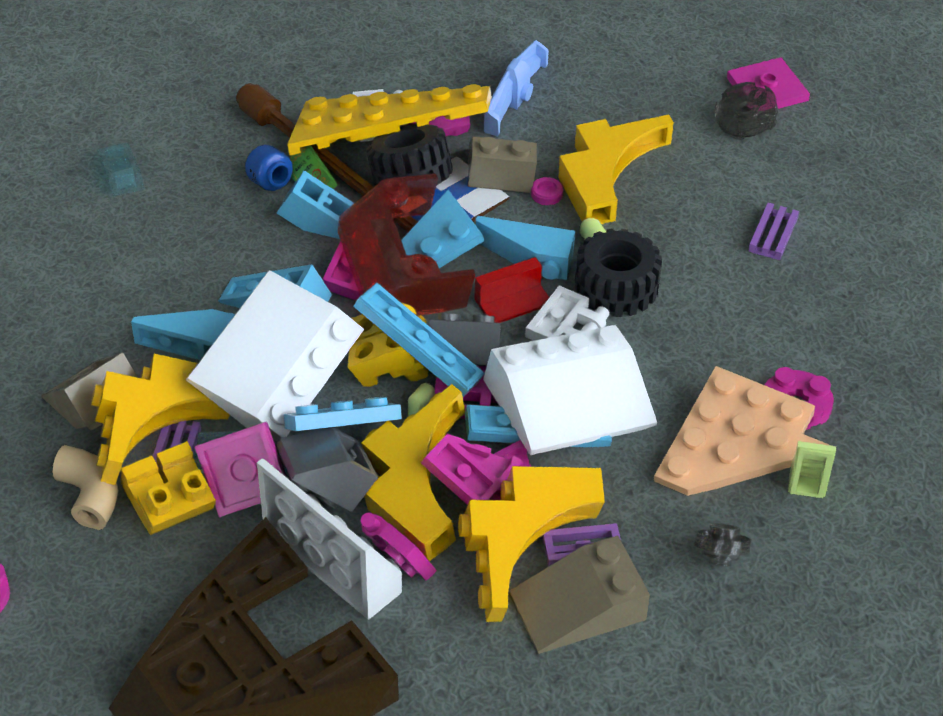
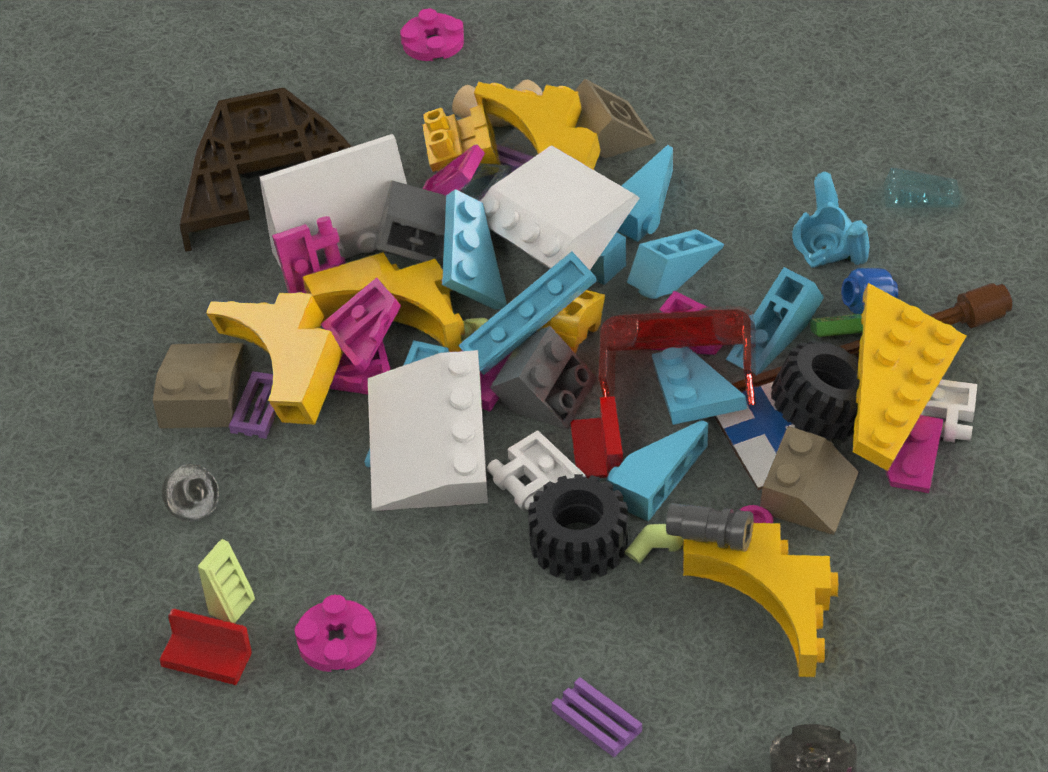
camera: 115 degrees right, 0 degrees up
(208, 196) = (830, 229): none -> medium azure hair
(515, 85) = (943, 533): light blue plate -> none
(594, 173) = (711, 525): none -> dark grey axle
(734, 435) = (309, 556): light nougat wing -> none
(868, 474) = (206, 647): none -> red panel

